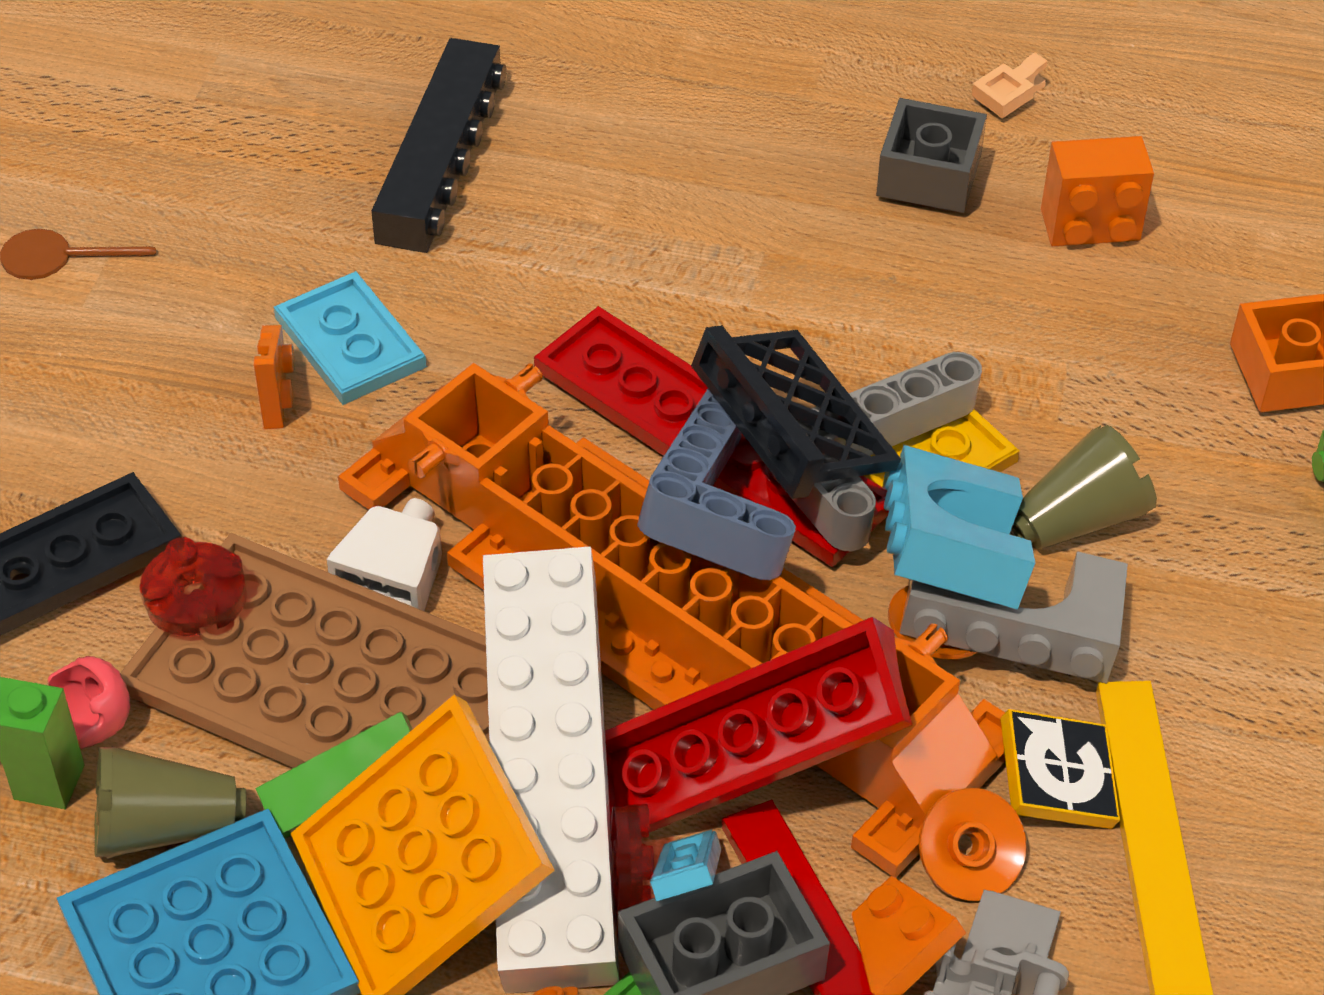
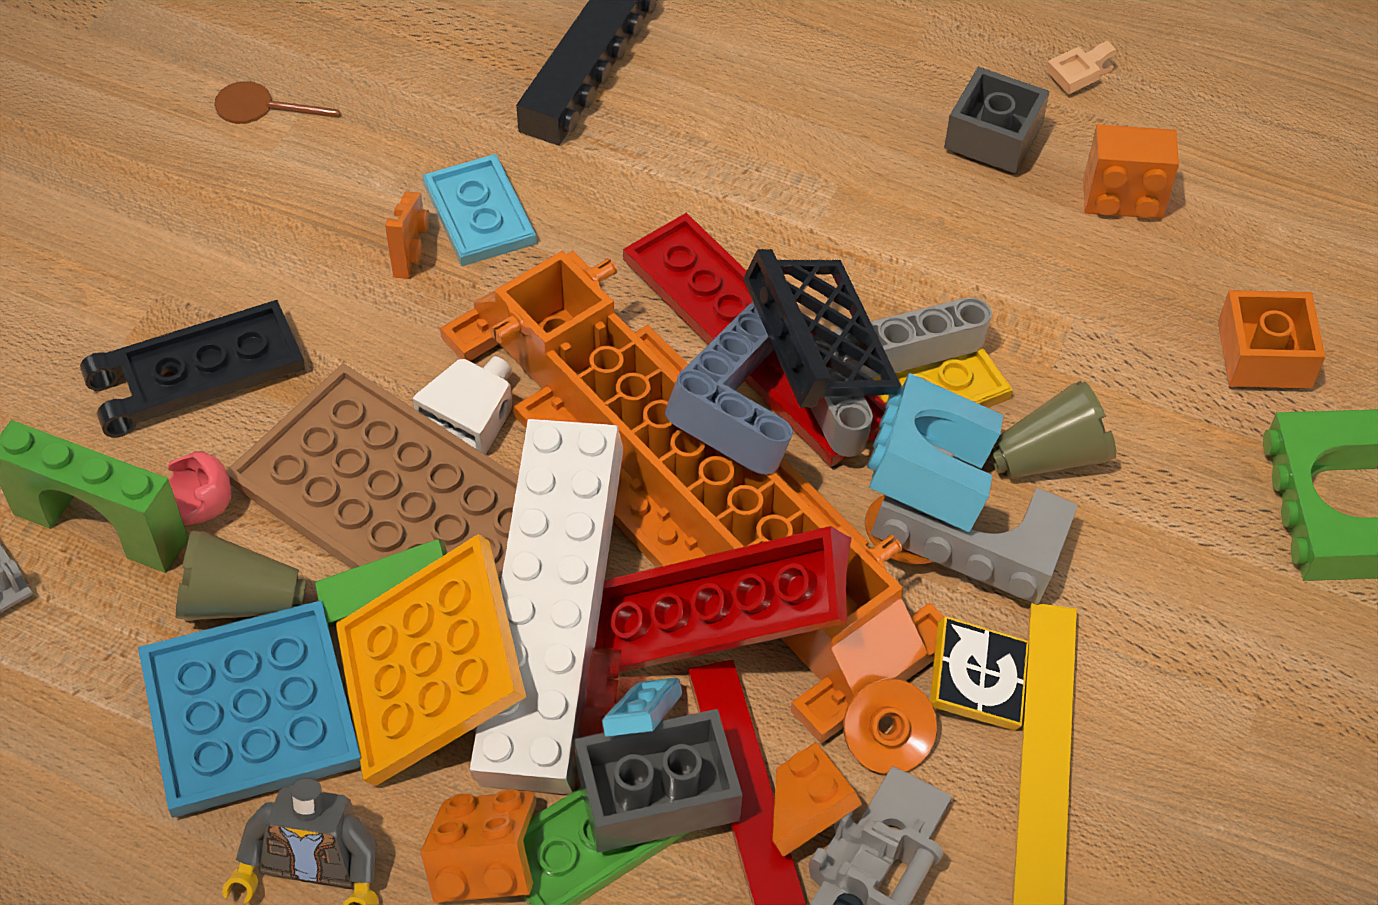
camera: 10 degrees right, 5 degrees up
(190, 563) = (295, 385): clear red plate -> none

